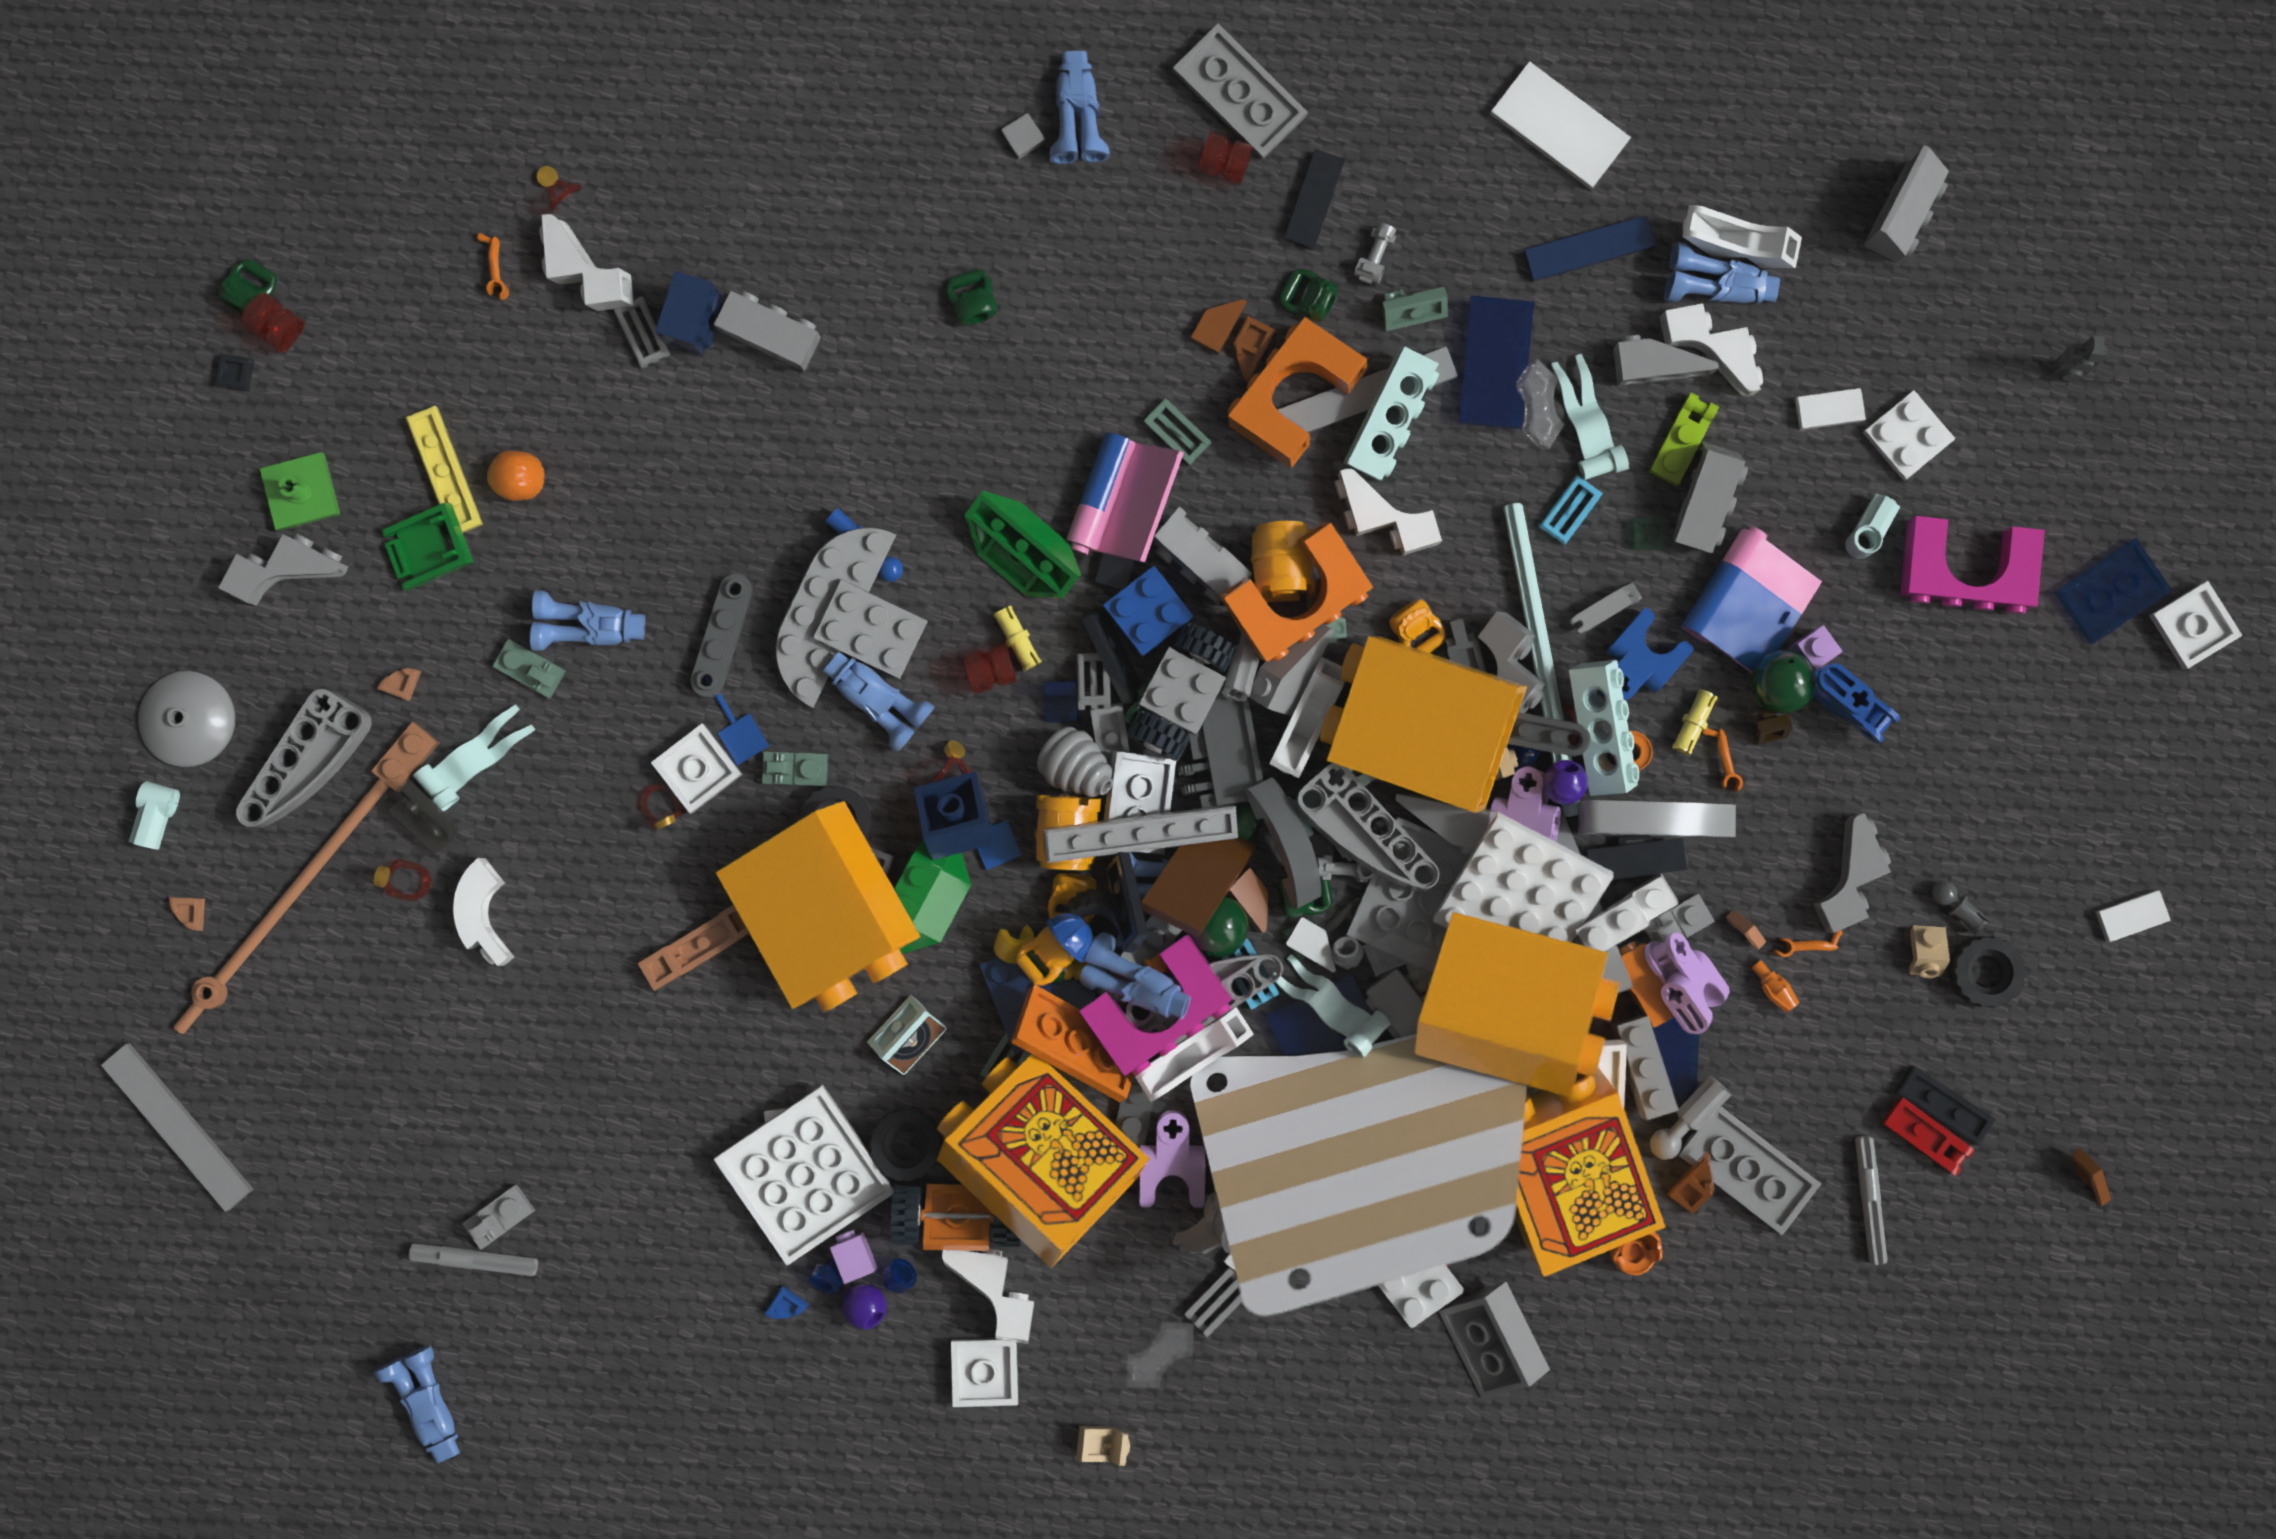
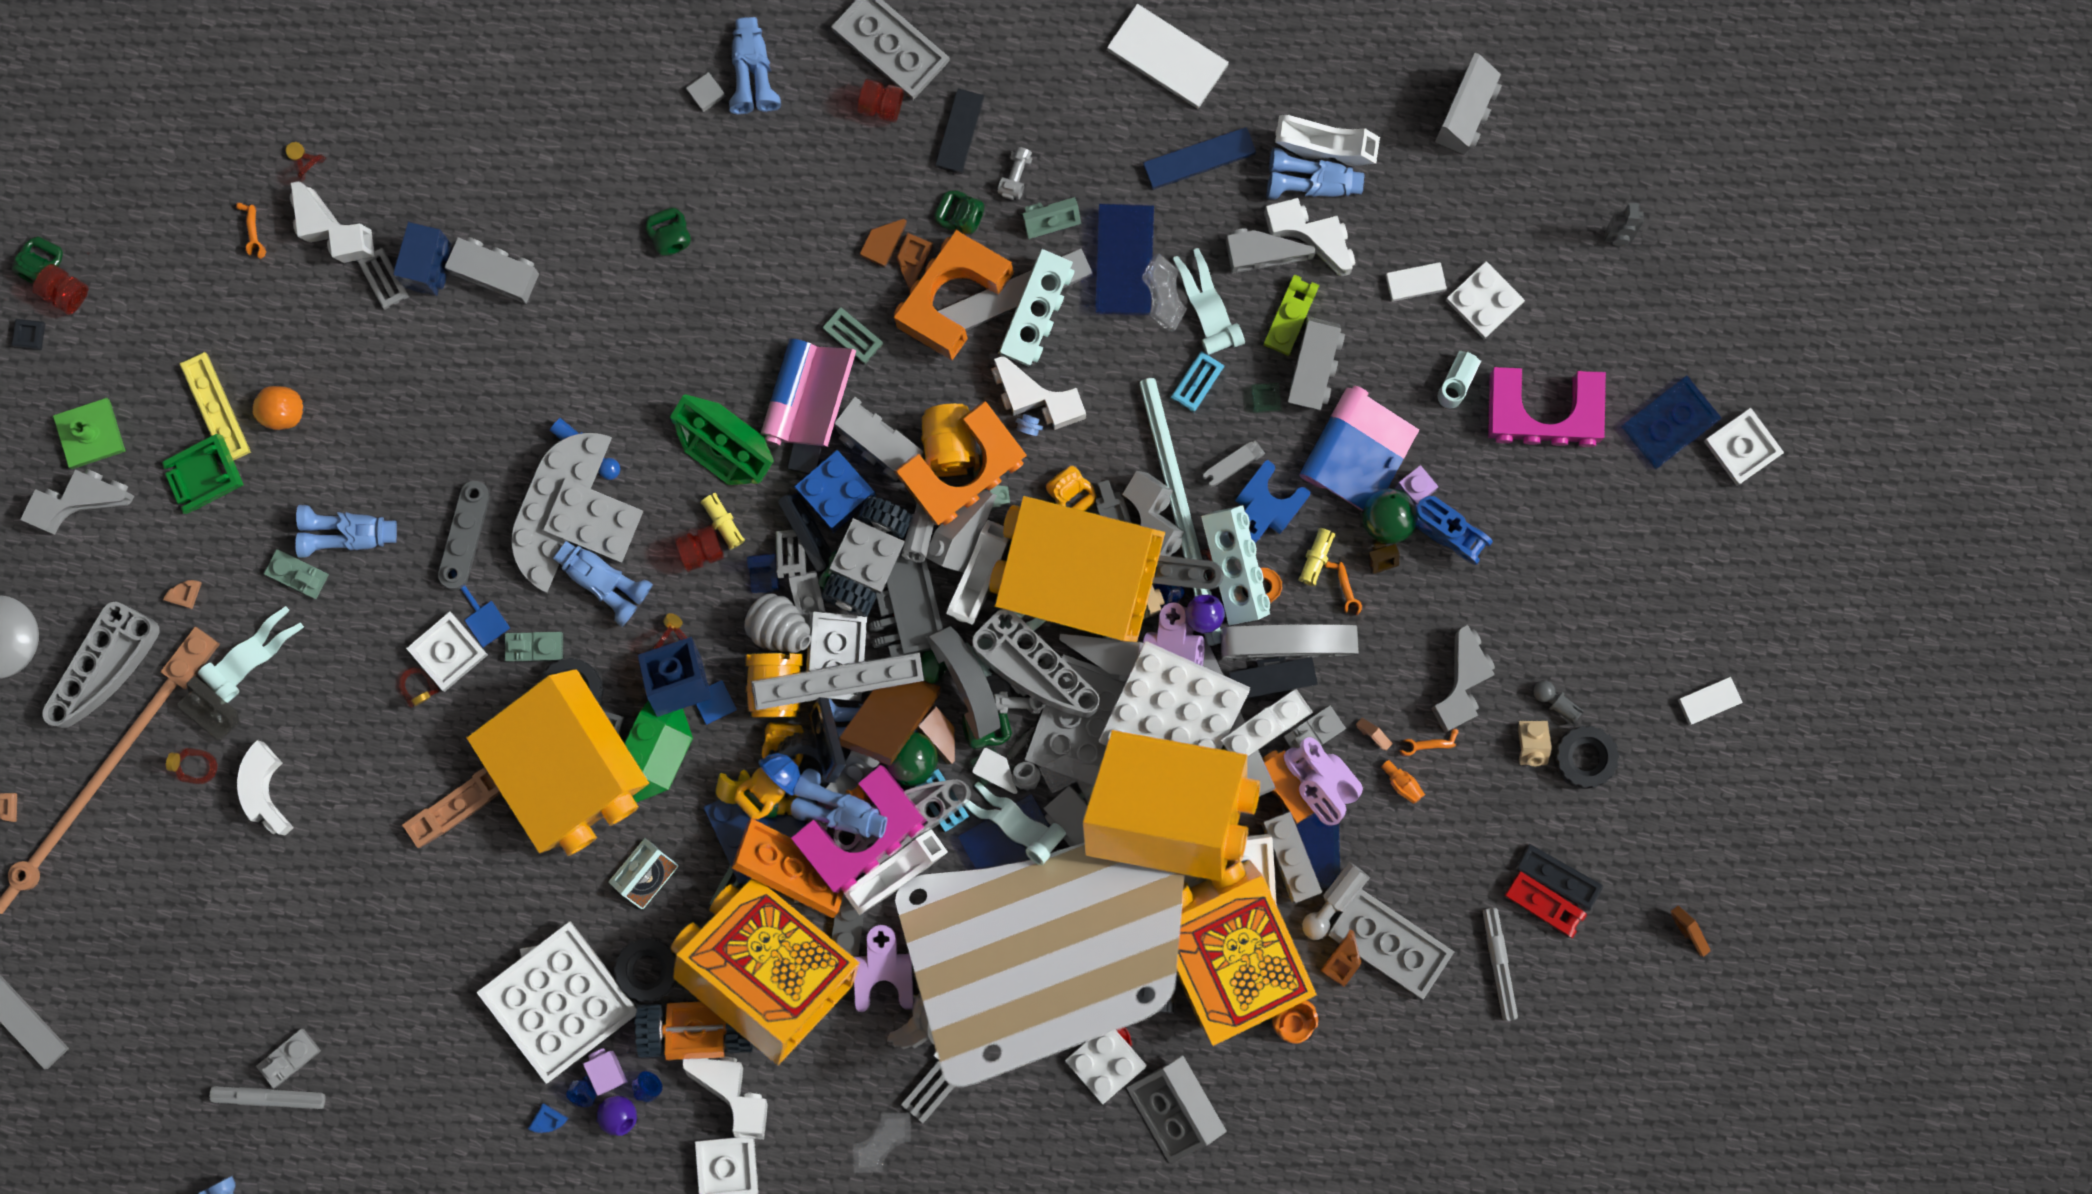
camera: 10 degrees left, 5 degrees down
(1374, 549) = (1029, 425): none -> medium blue plate

